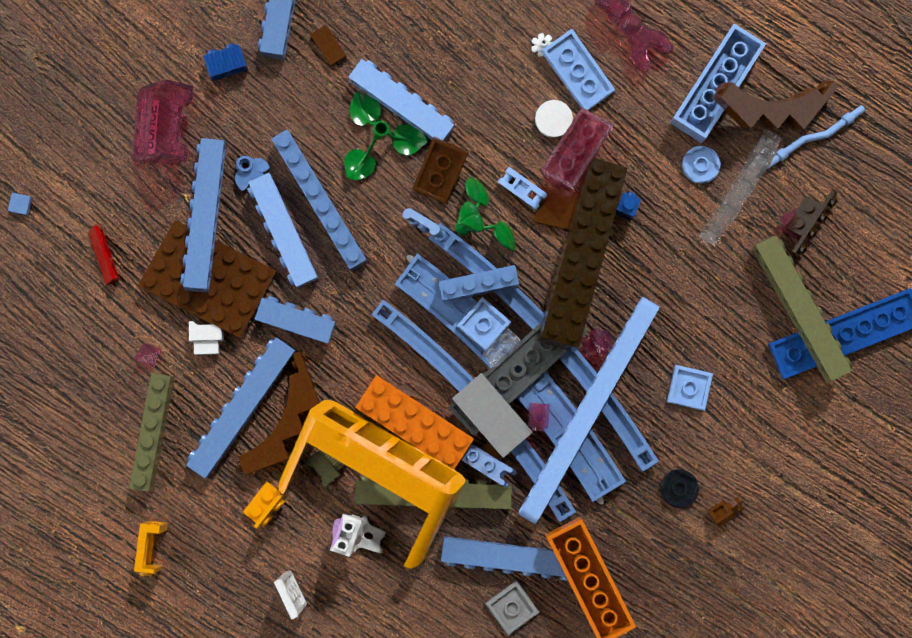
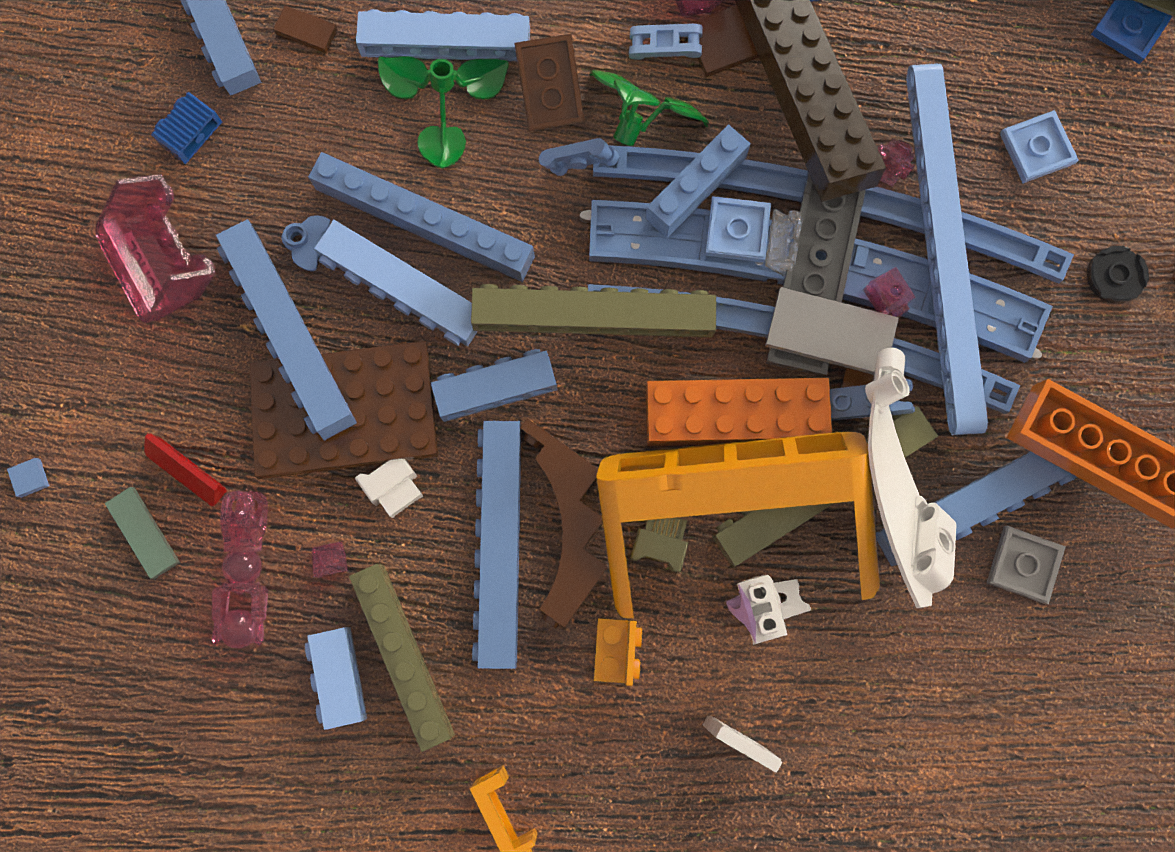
camera: 30 degrees left, 5 degrees down
(60, 274) = (142, 533): none -> sand green tile
(99, 330) = (241, 567): none -> clear pink piece
(111, 420) = (336, 678): none -> light blue brick
(371, 318) = (593, 311): none -> olive brick
(455, 543) = (918, 532): none -> white panel

